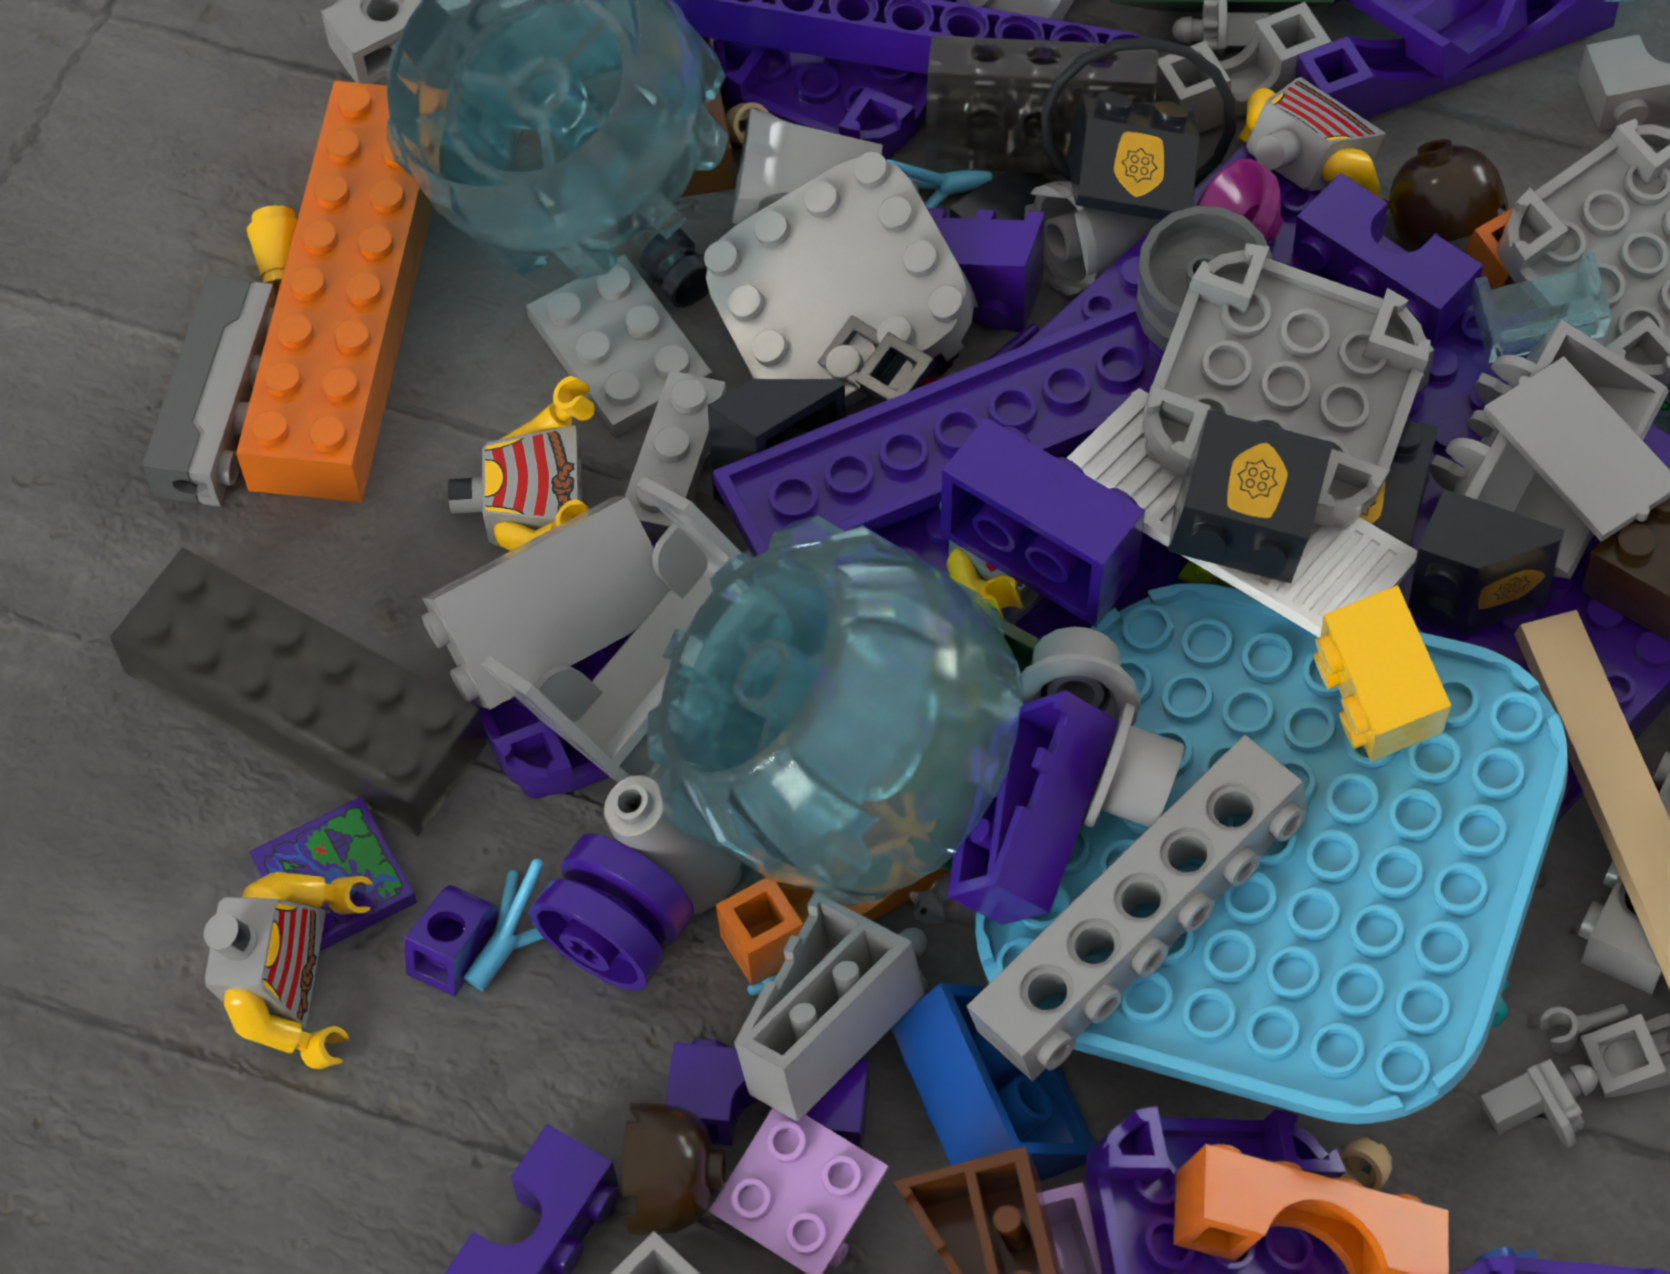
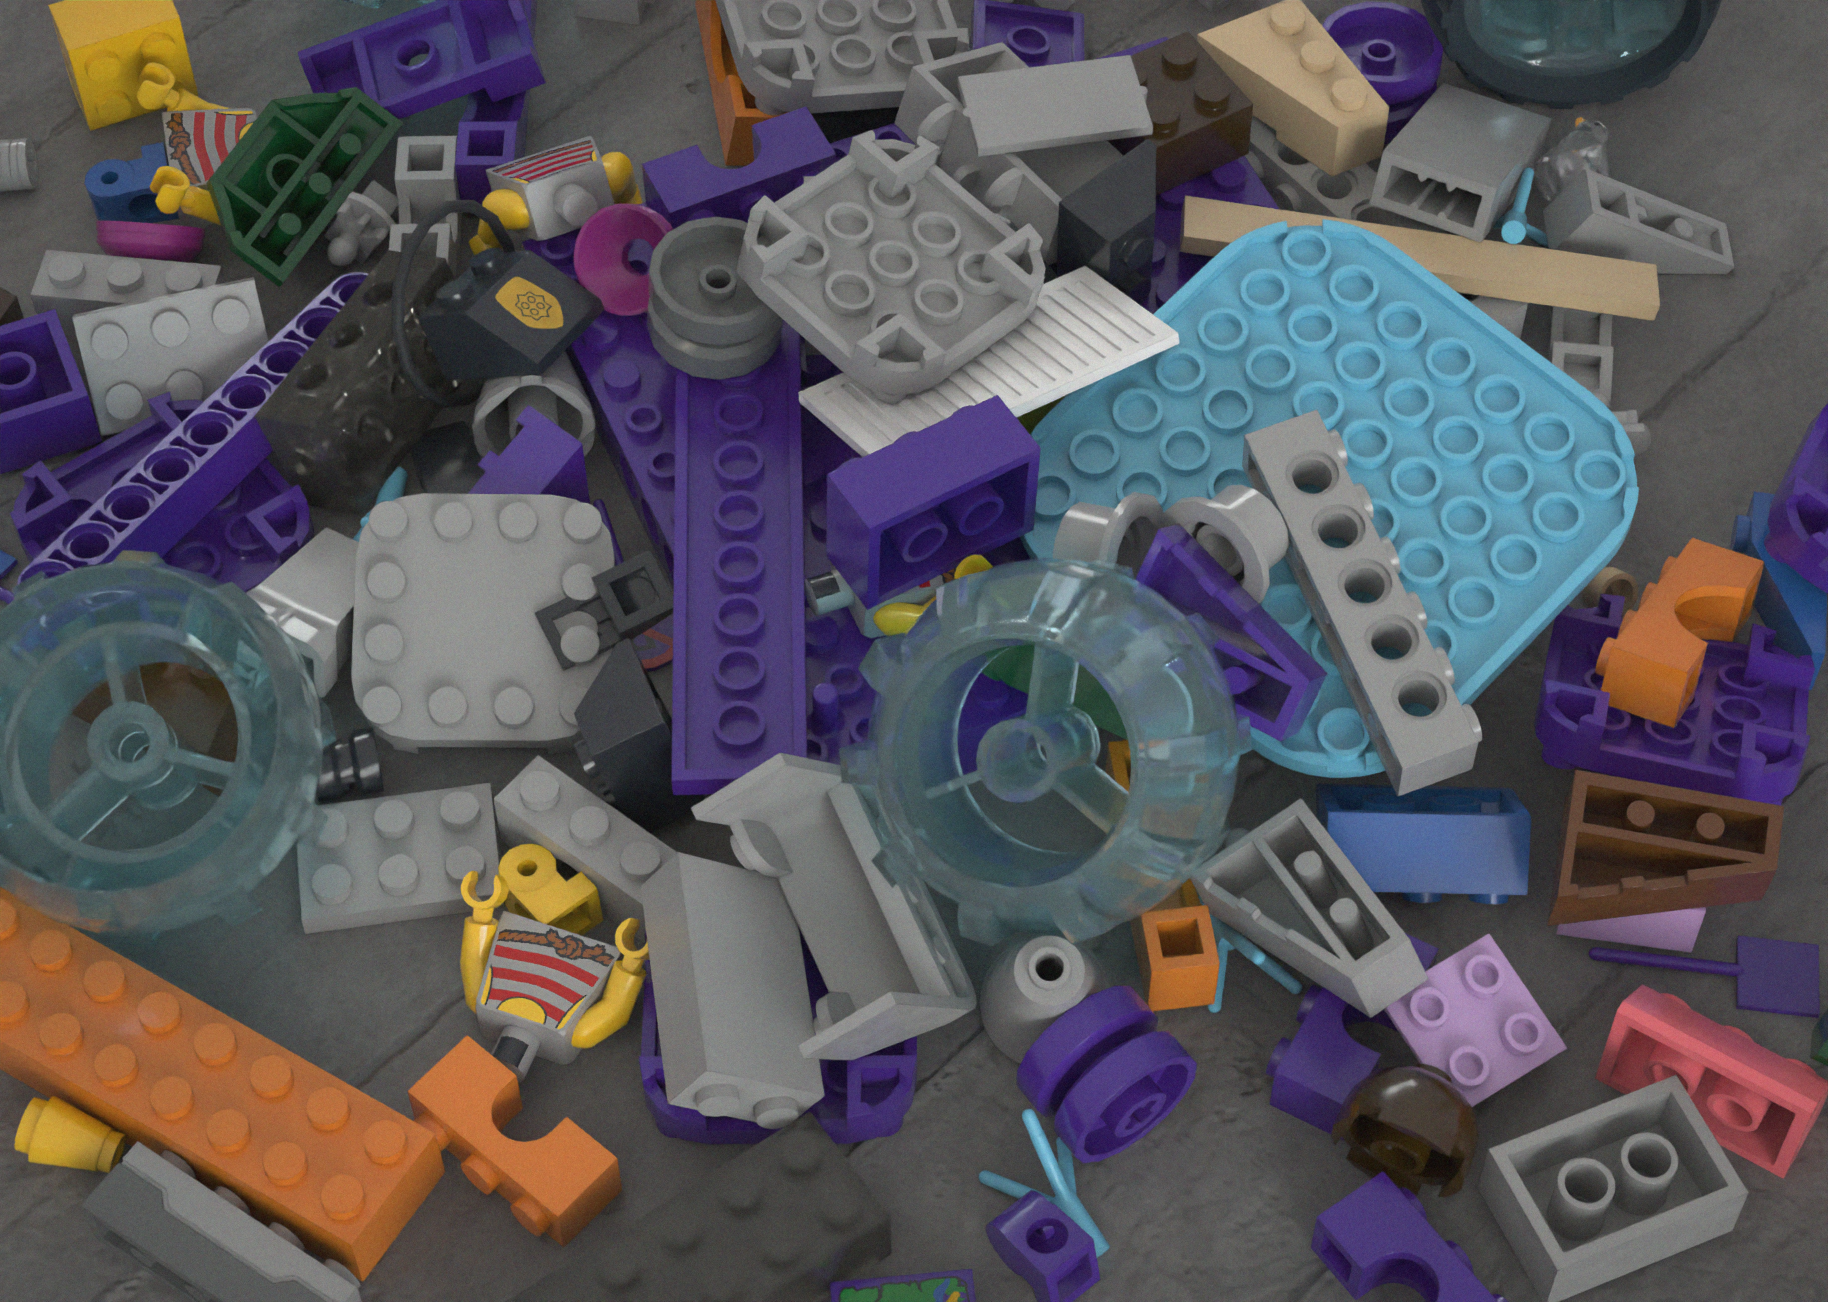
camera: 70 degrees left, 5 degrees down
(400, 488) = (550, 1181): none -> orange arch
(614, 451) = (544, 895): none -> yellow leg
(1249, 496) = (1015, 323): black slope -> none
(1382, 674) = (1254, 299): yellow brick -> none
(1445, 192) = (667, 119): dark brown cylinder -> none
(1522, 313) = (867, 84): clear light blue panel -> none

